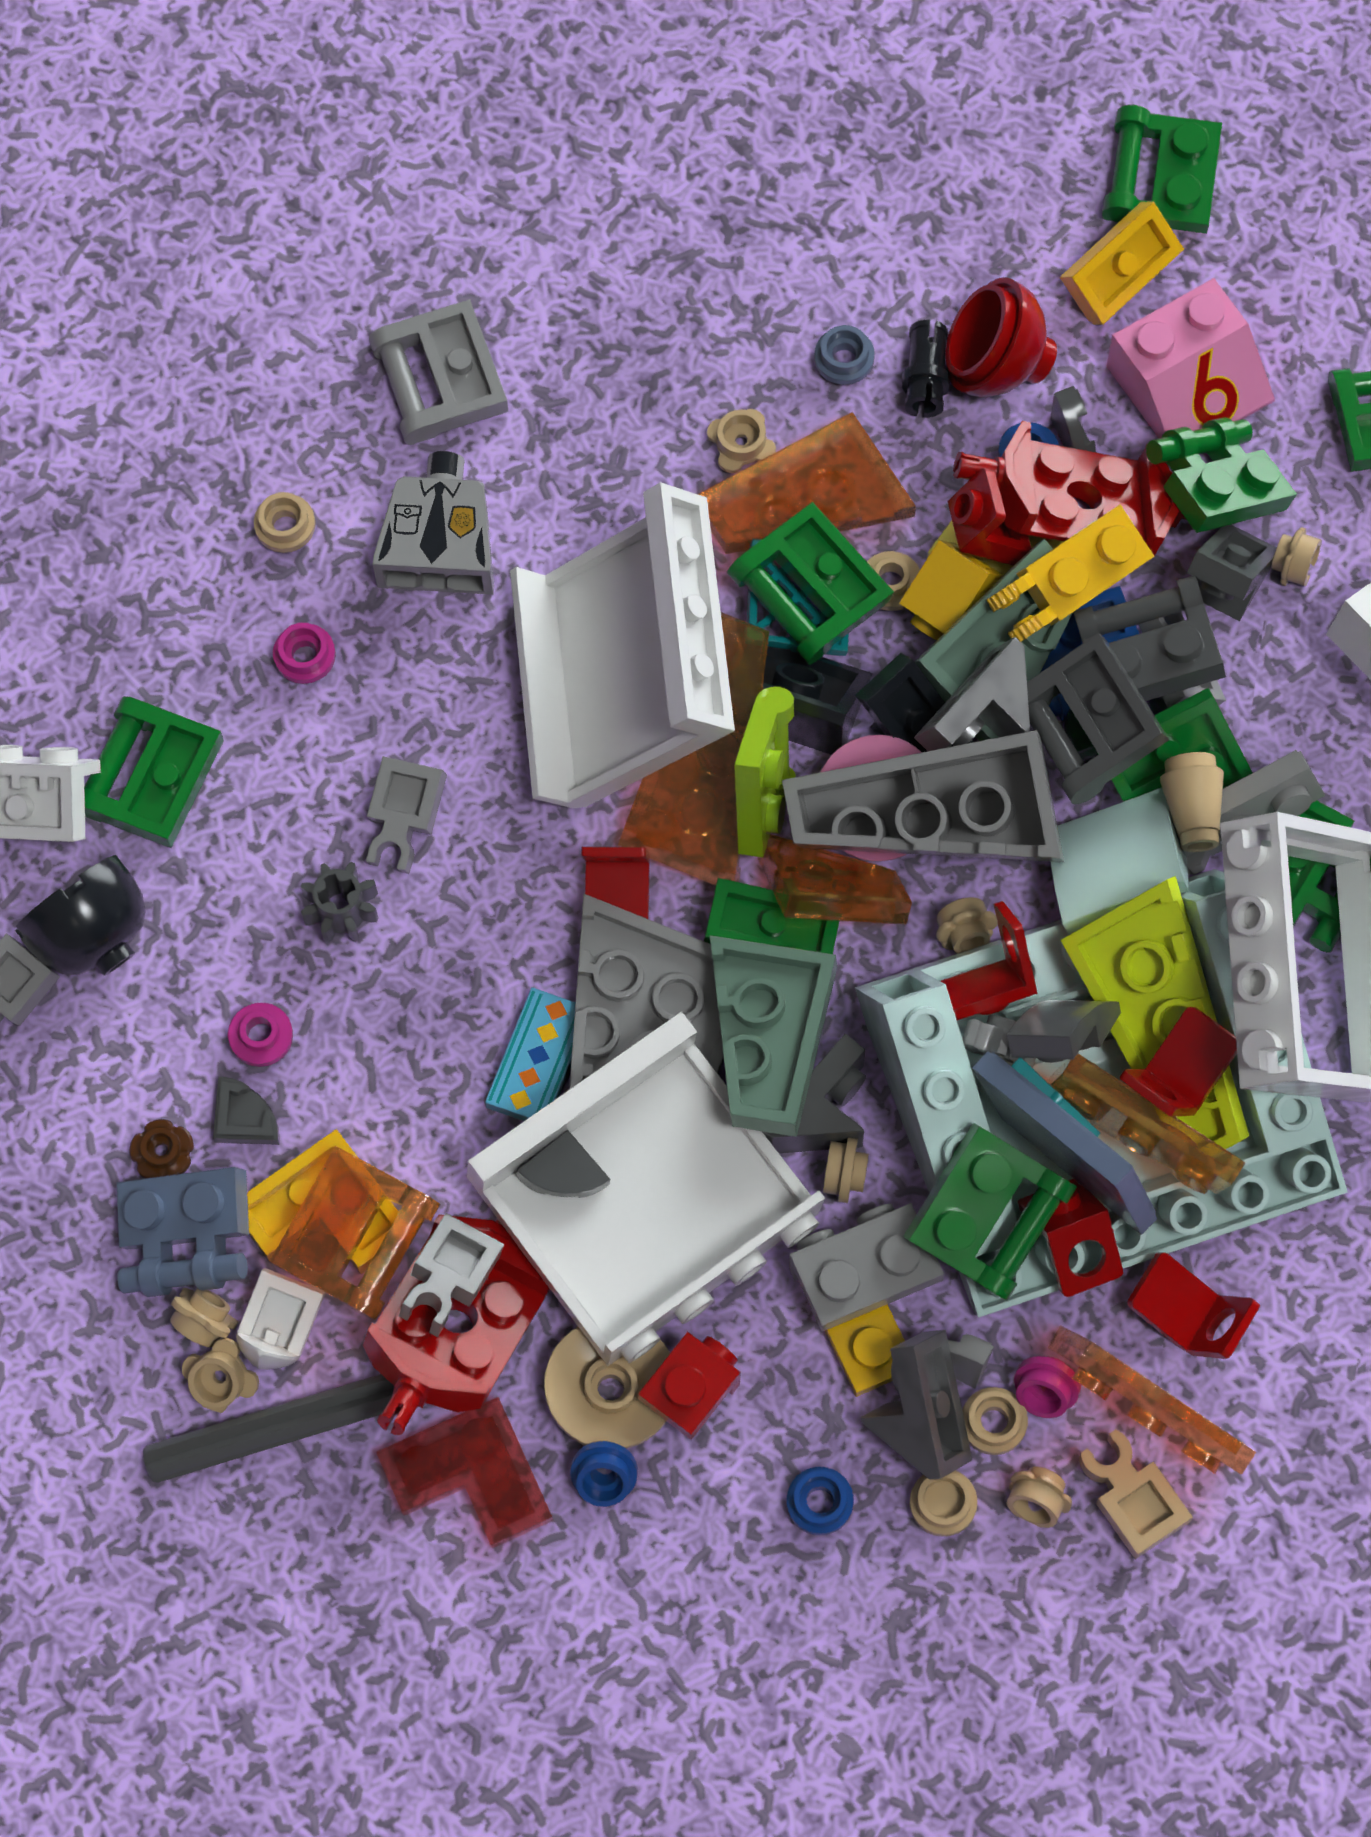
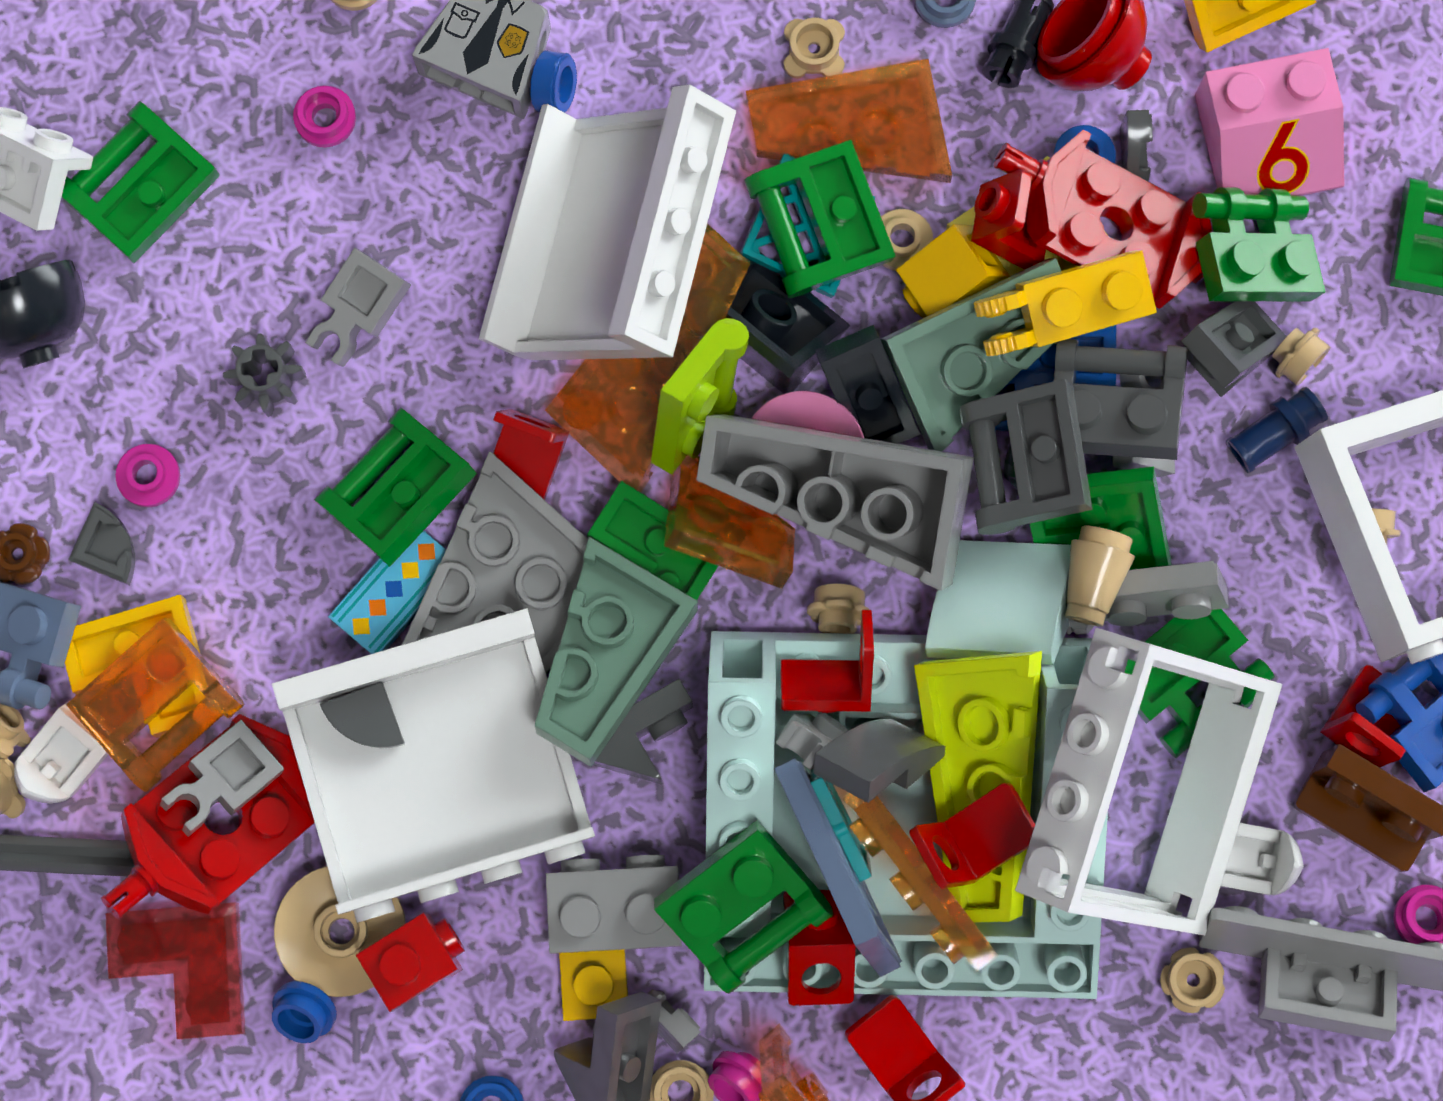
camera: 20 degrees right, 10 degrees up
(511, 546) = (553, 80): none -> blue tile
(518, 964) = (405, 496): none -> green plate
(845, 1169) = (633, 805): tan plate -> none
(989, 696) = (943, 395): flat silver slope -> none
(1307, 623) = (1284, 424): none -> dark blue pin

